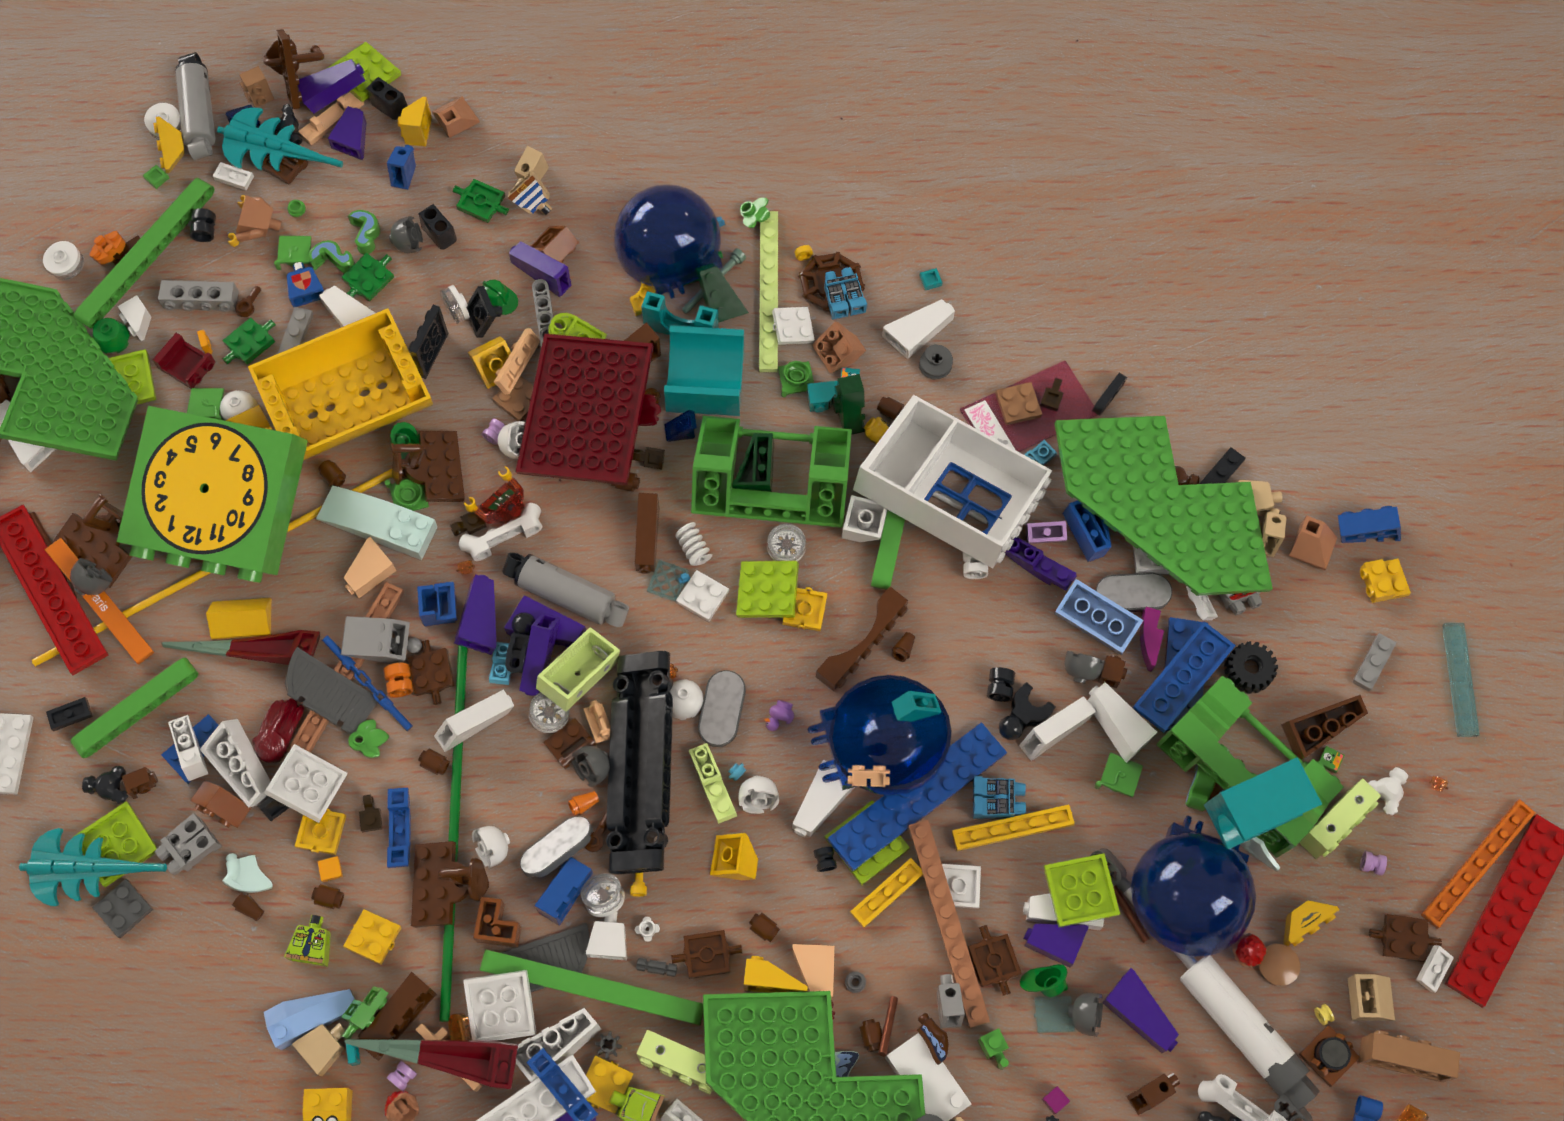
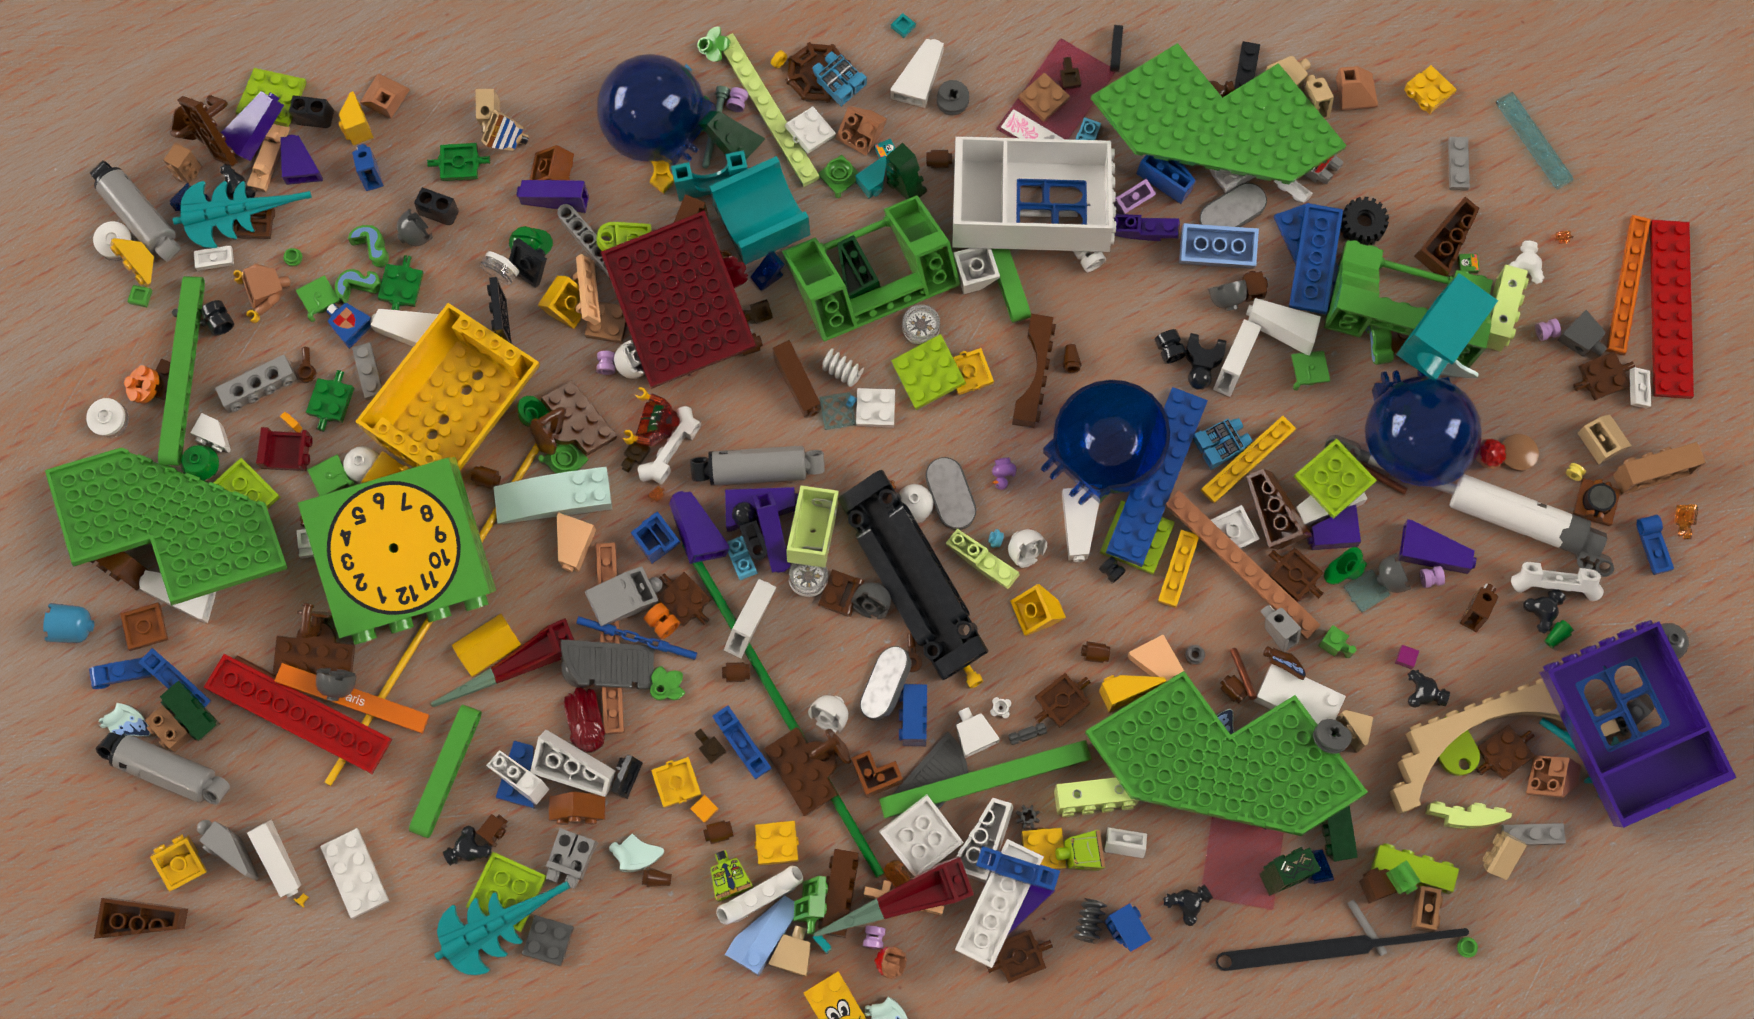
camera: 25 degrees left, 5 degrees up
(69, 714) = (390, 808): black plate -> none
(305, 783) = (641, 749): white plate -> none
(324, 976) = (760, 896): none -> white plate
(581, 803) = (883, 635): orange cone -> none
(598, 721) = (854, 562): light nougat hinge -> none
(602, 895) = (949, 700): clear piece -> none
(746, 268) = (737, 99): none -> lavender wheel
(860, 776) = (1125, 475): light nougat hinge -> none
(876, 428) = (939, 184): yellow head -> none
(915, 706) = (1122, 401): teal slope -> none
(1009, 890) = (1276, 512): none -> reddish brown wedge
(1124, 1036) = (1432, 577): none -> lavender wheel
(1150, 637) = (1269, 240): magenta slope -> none
(1306, 920) = (1521, 404): yellow slope -> none
(1370, 524) = (1393, 48): blue wedge -> none
(1406, 888) = (1584, 335): none -> dark grey torso

